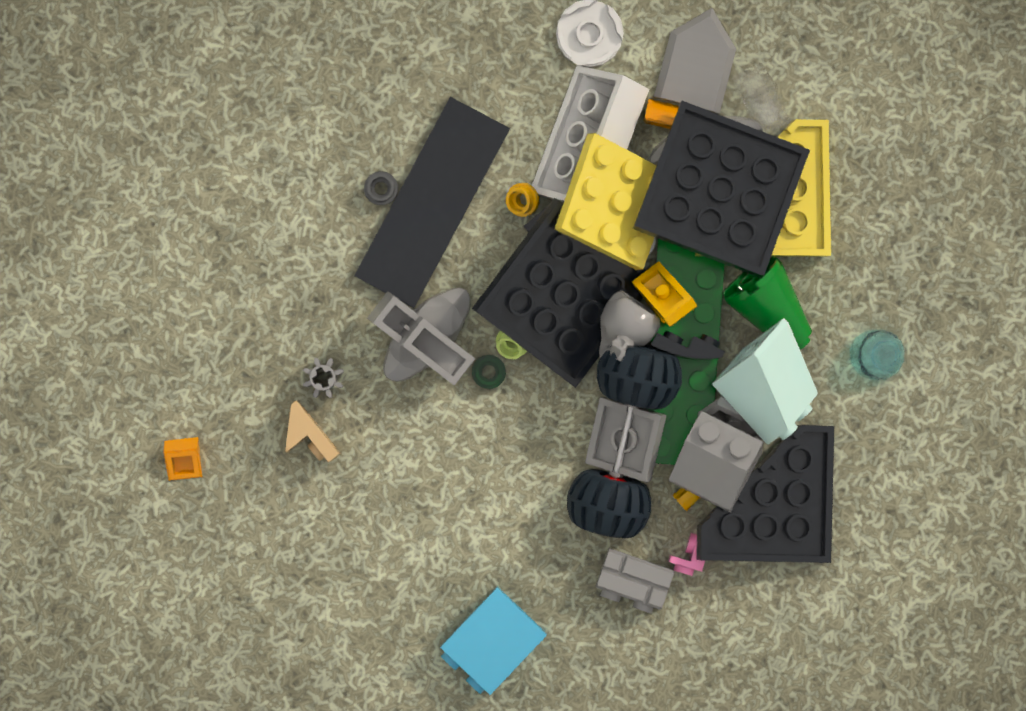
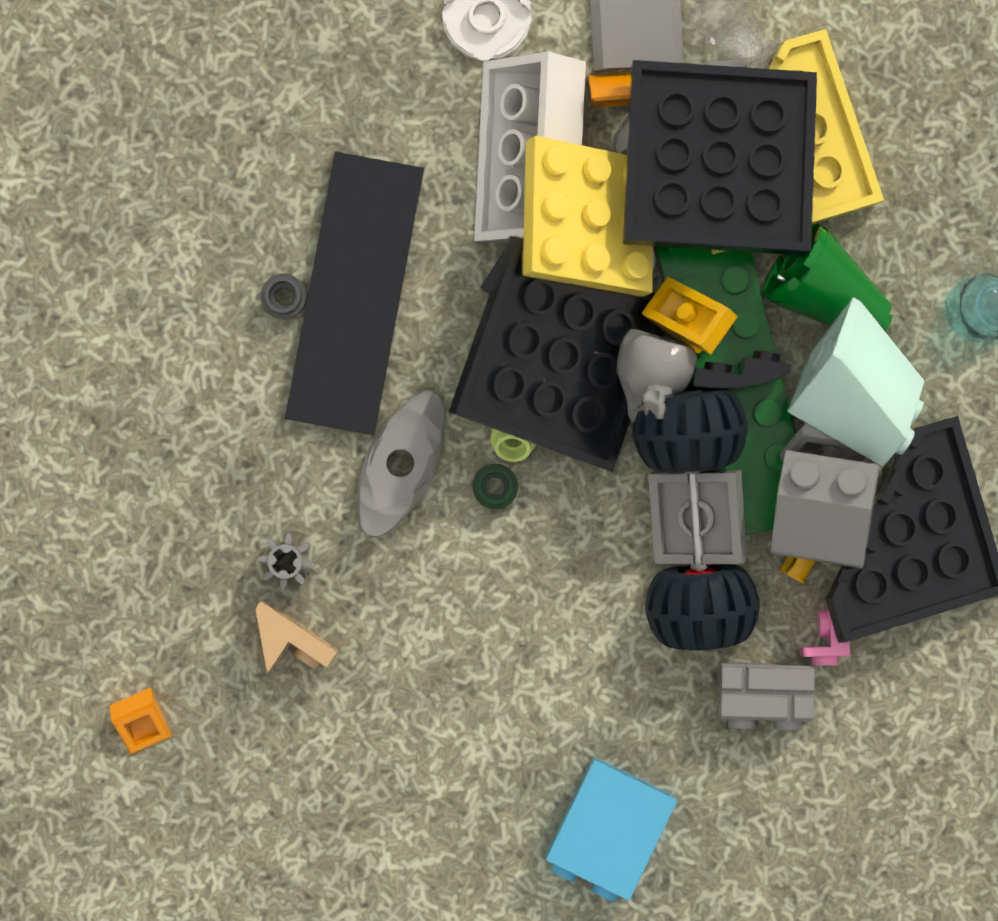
camera: 15 degrees left, 0 degrees up
(421, 338) = (395, 471): light grey slope -> none
(513, 199) = (456, 253): yellow plate -> none

